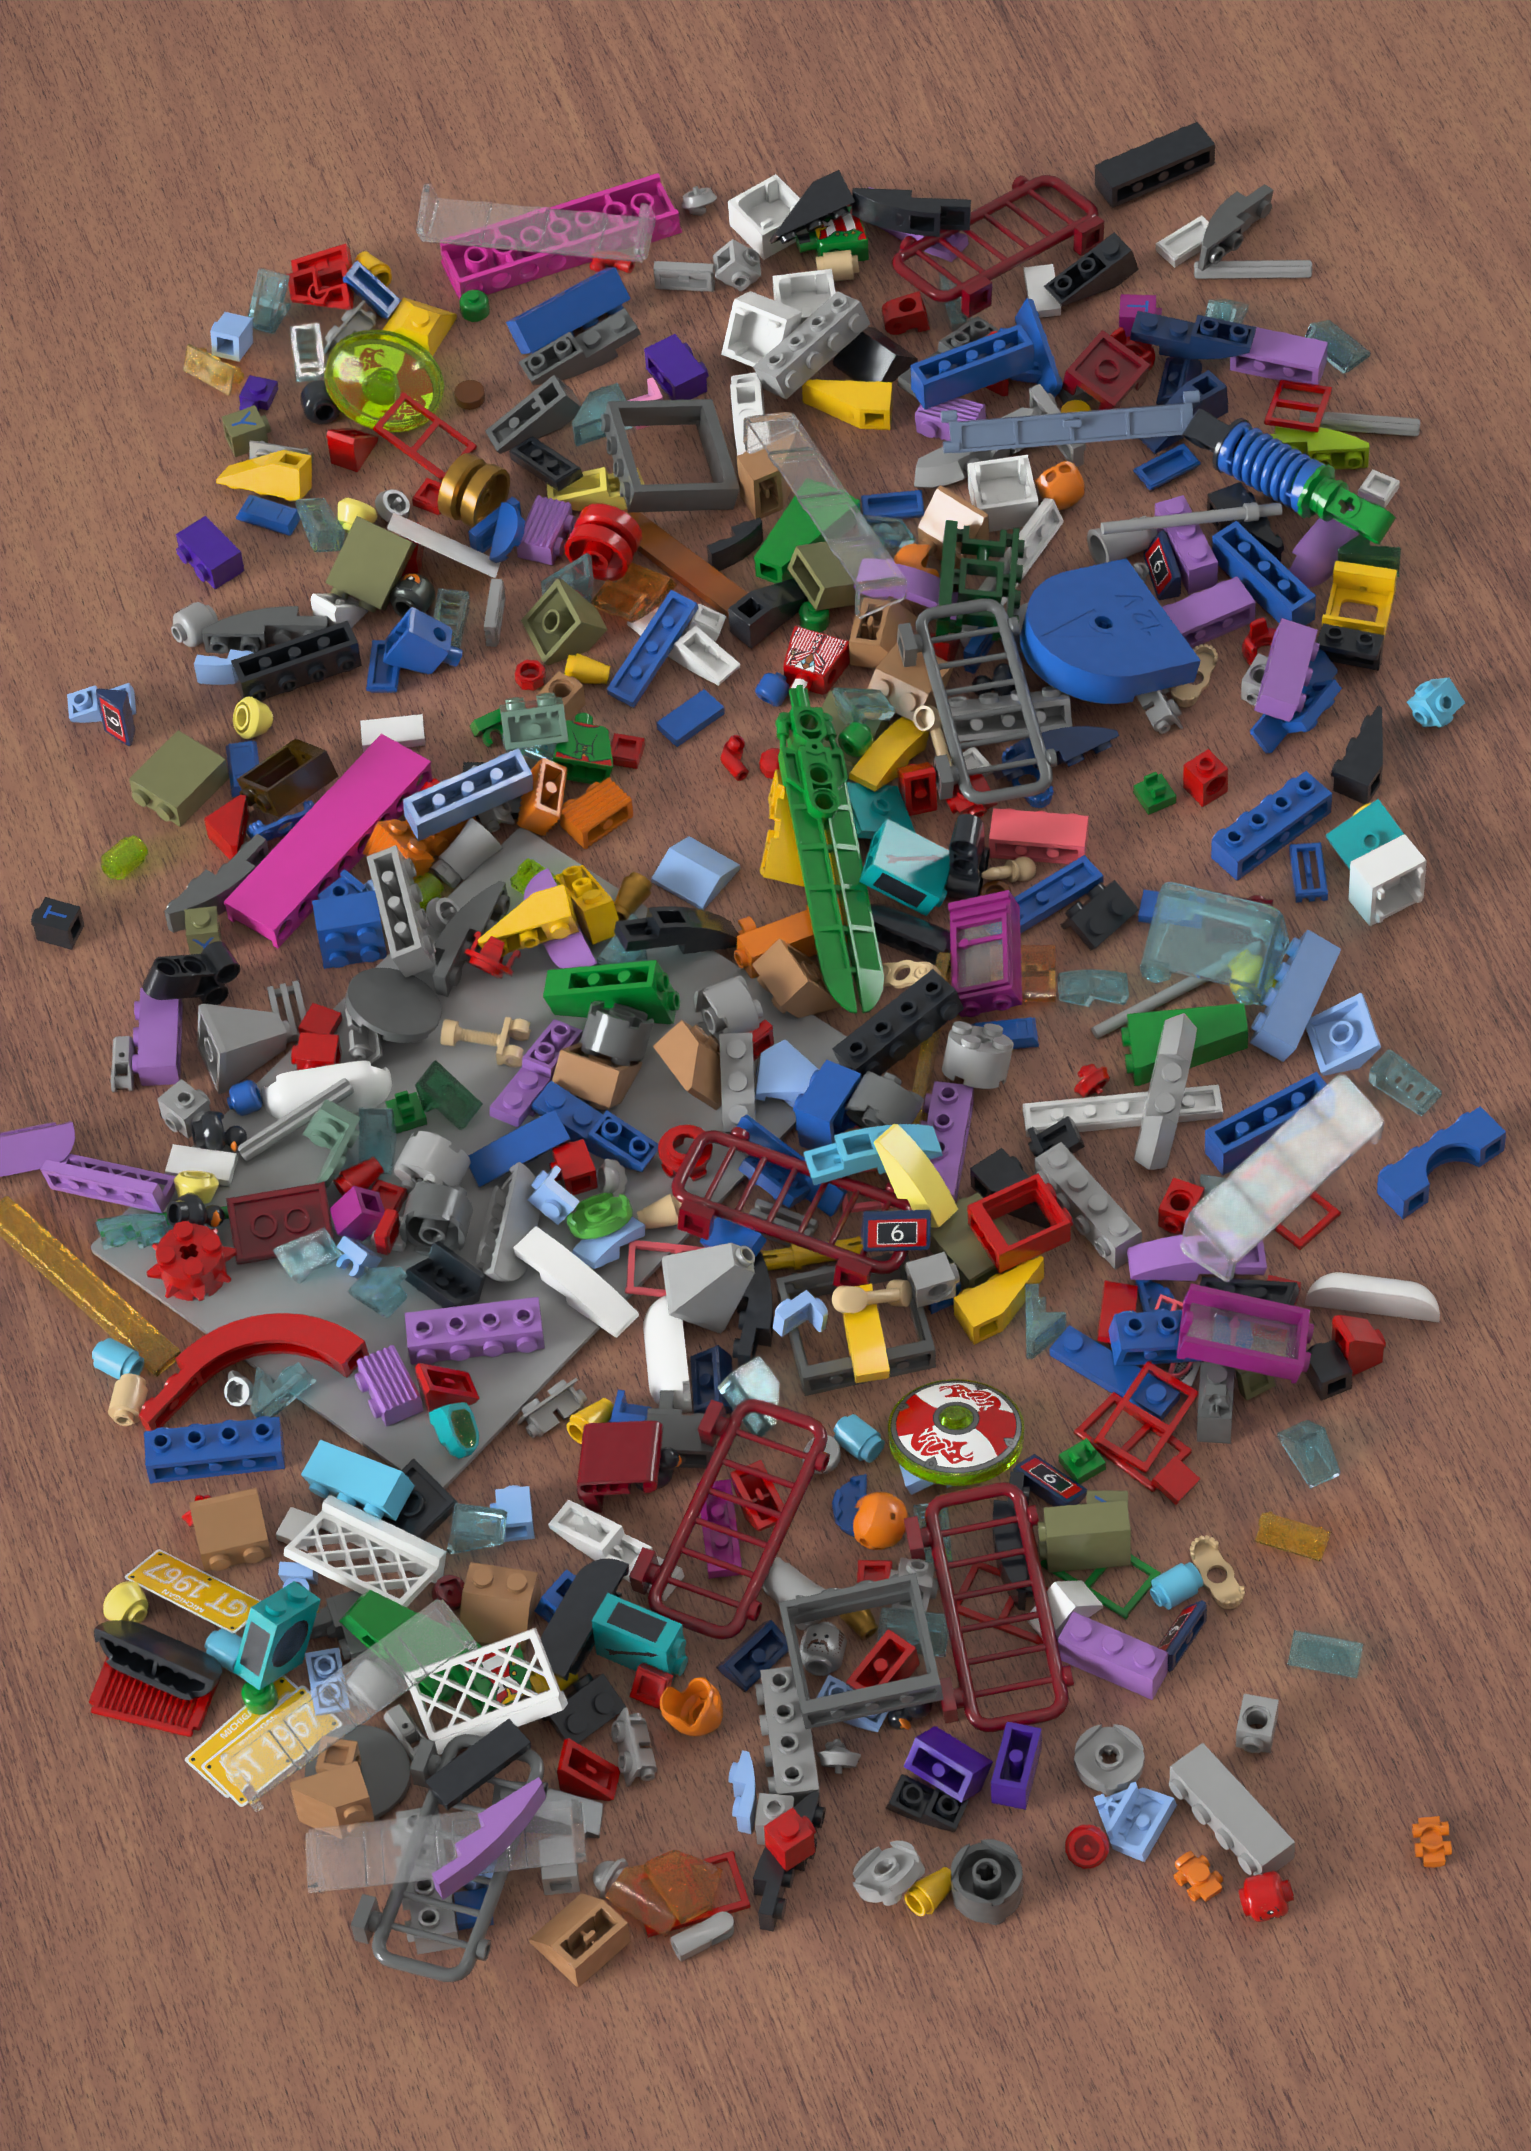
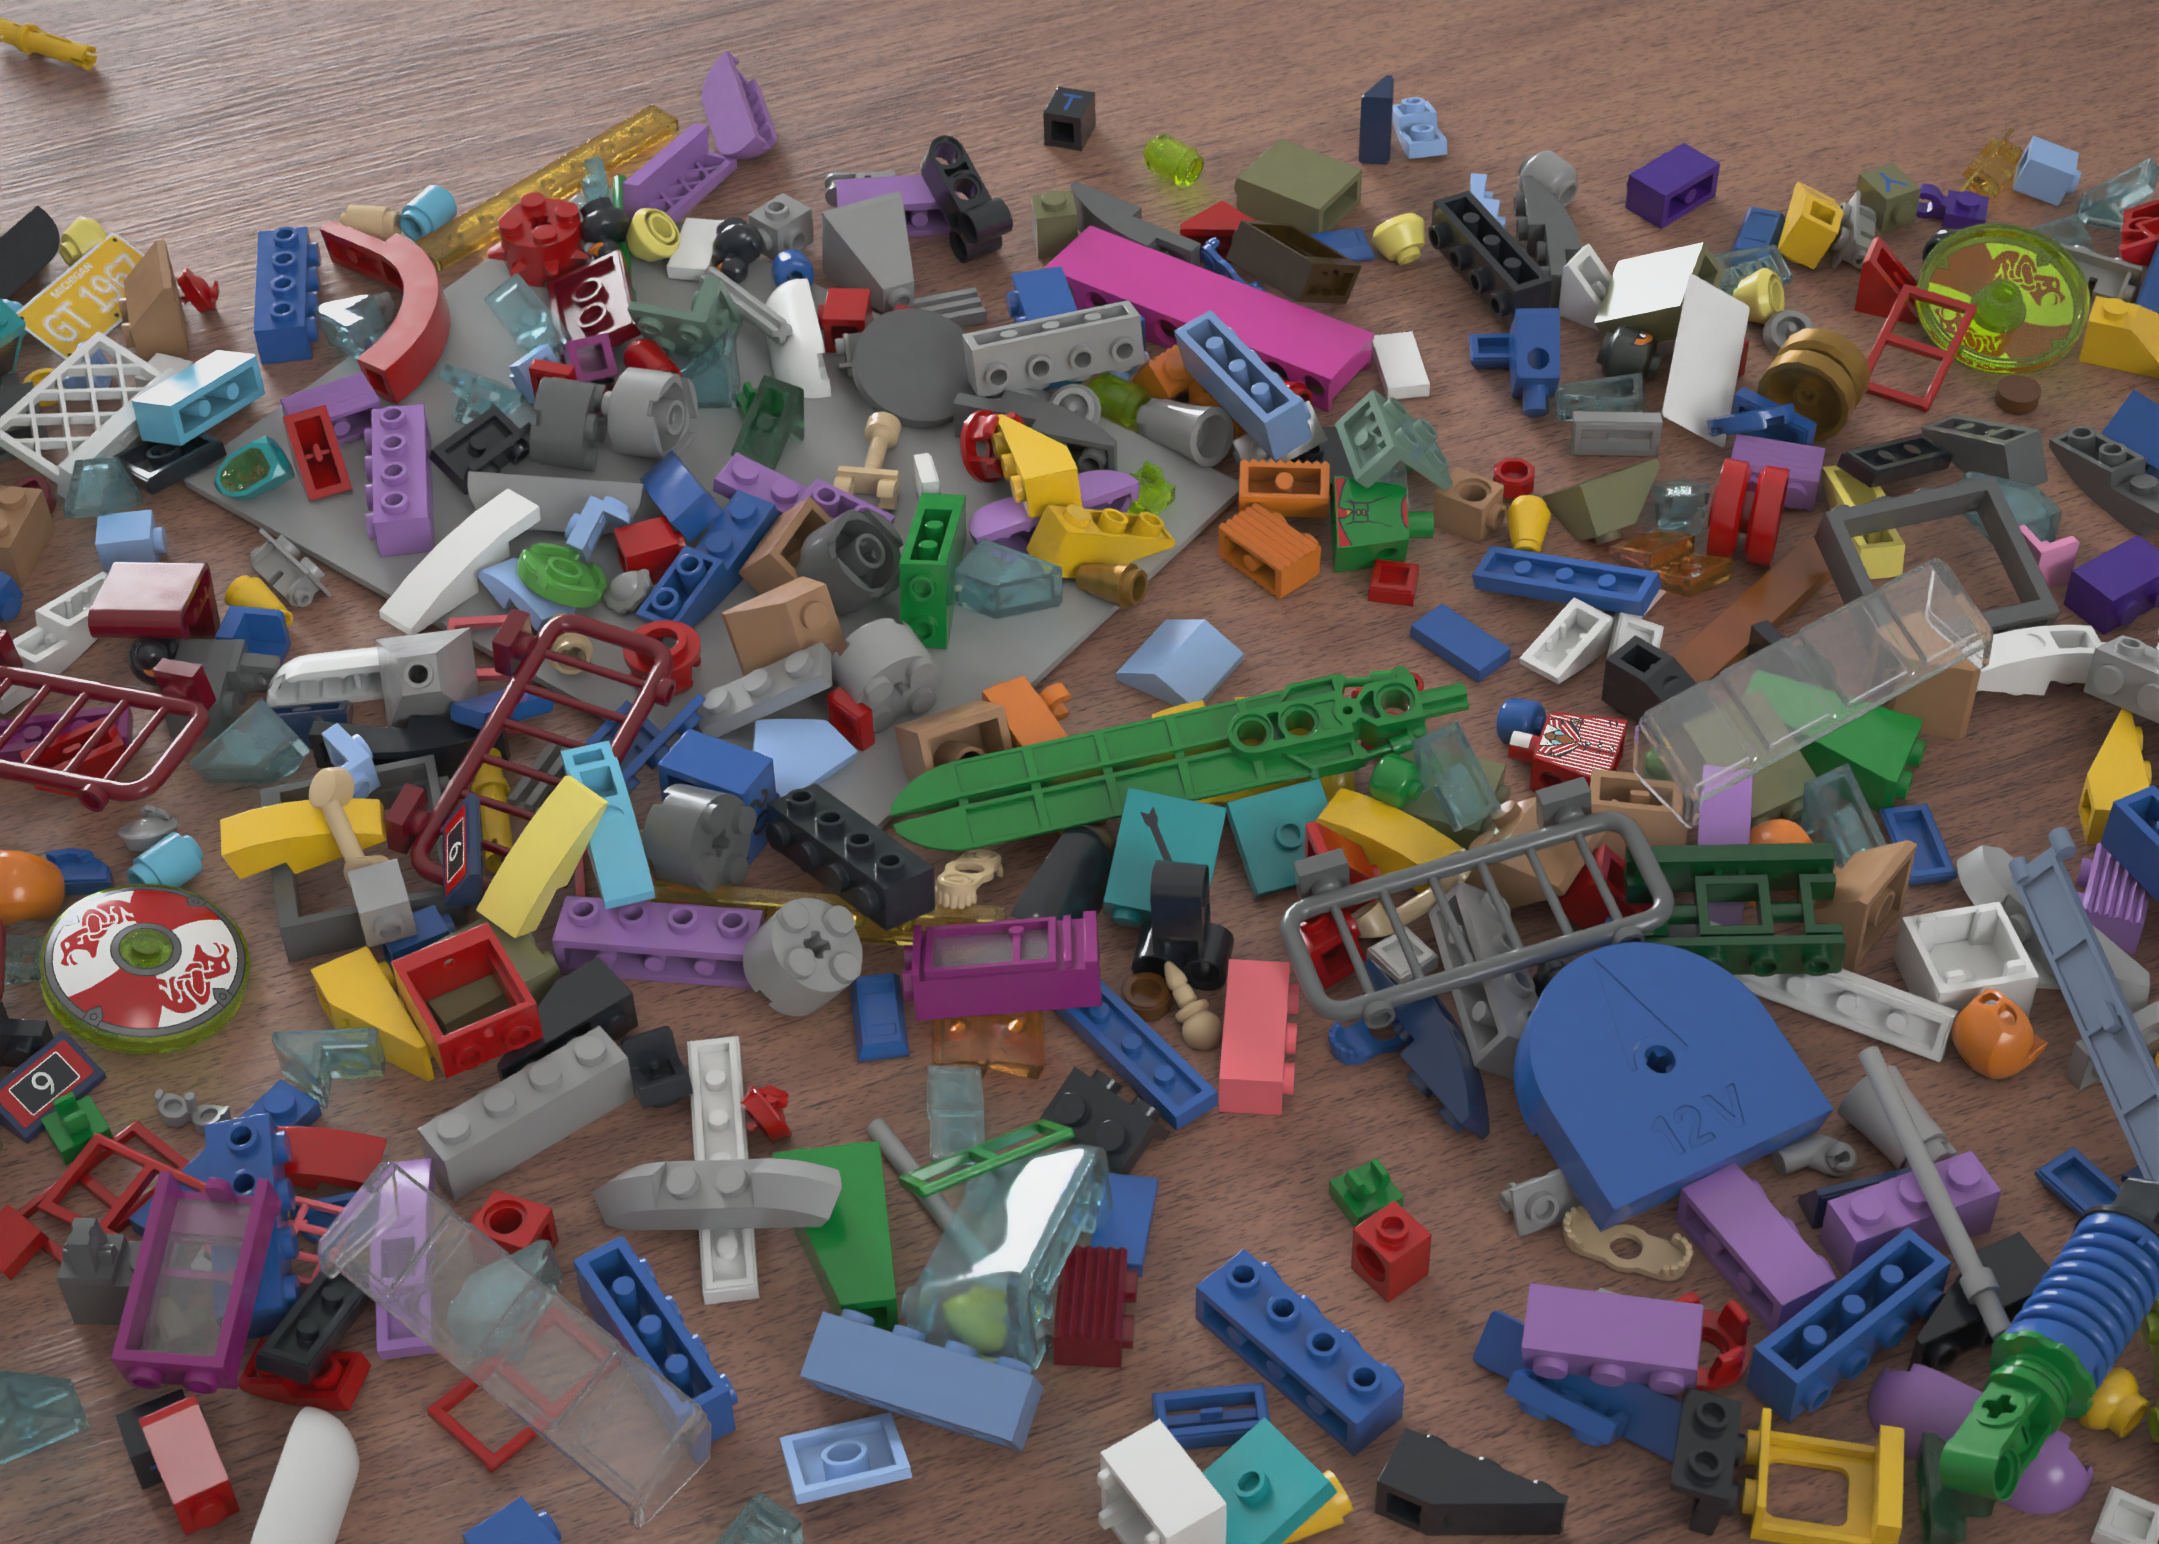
camera: 85 degrees right, 10 degrees down
(518, 1002) = (925, 474): none -> white tile
(668, 926) = (1033, 612): black slope -> none
(1074, 1392) = (178, 1111): none -> light grey piece
(1128, 973) = (985, 1157): none -> green window

